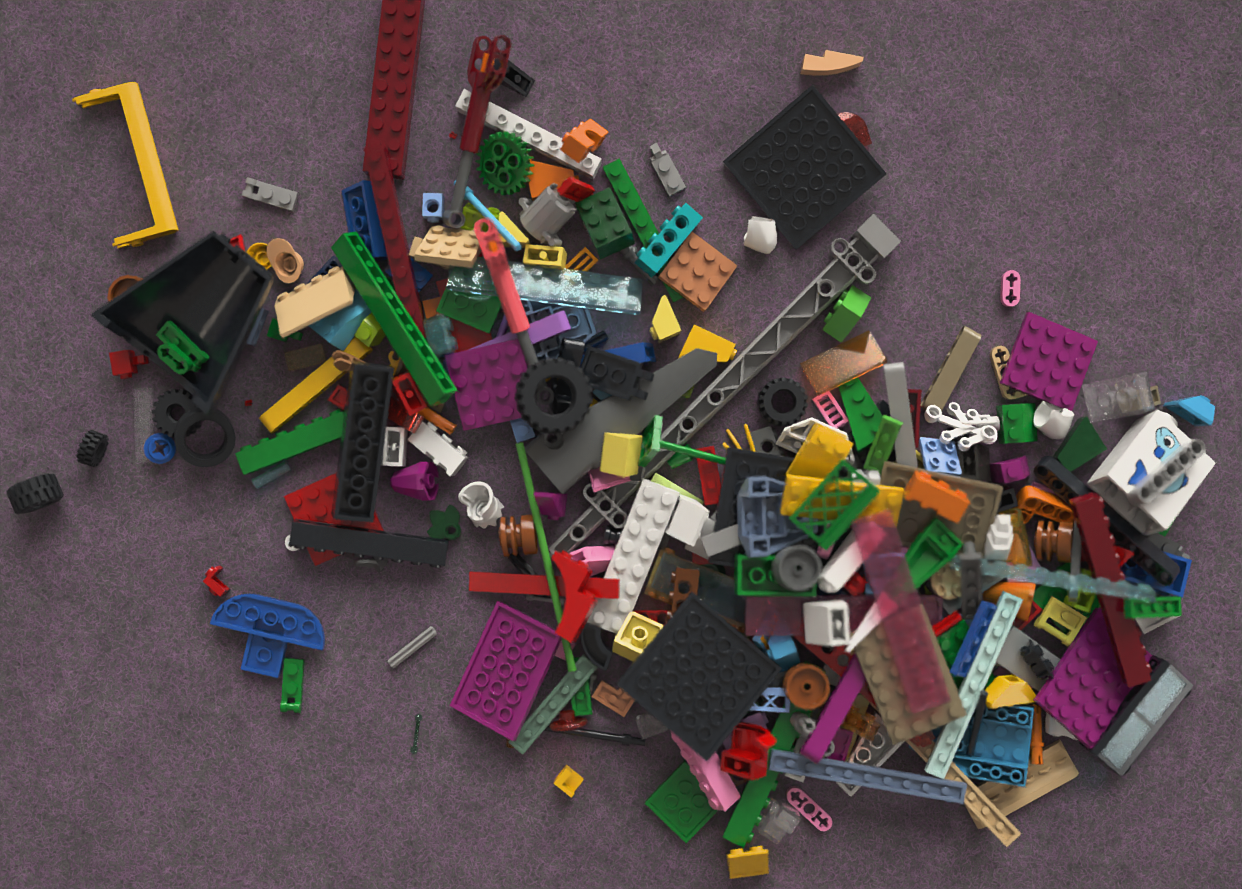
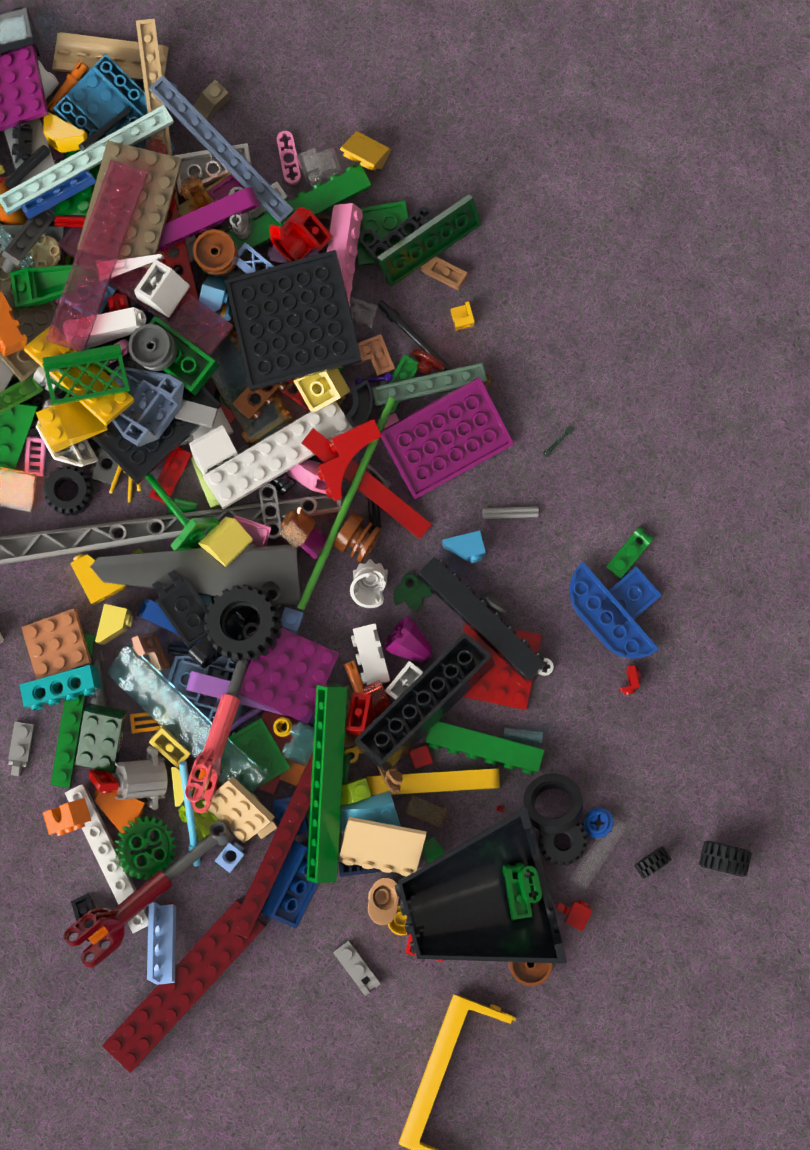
camera: 145 degrees left, 5 degrees down
(423, 593) = (466, 546): none -> dark azure slope
(434, 97) = (161, 943): none -> light blue fence
(464, 333) = (279, 726): none -> yellow cone
(571, 507) = (296, 526): none -> clear orange brick
(591, 685) = (388, 377): none -> dark purple hinge
(611, 806) = (445, 272): none -> medium nougat hinge
(621, 325) = (150, 645): none -> nougat plate
(639, 825) = (429, 240): none -> dark green plate
(669, 812) = (398, 233): none -> black beam
(908, 812) = (211, 100): none -> dark tan slope
(1017, 643) = (27, 166): none -> black axle

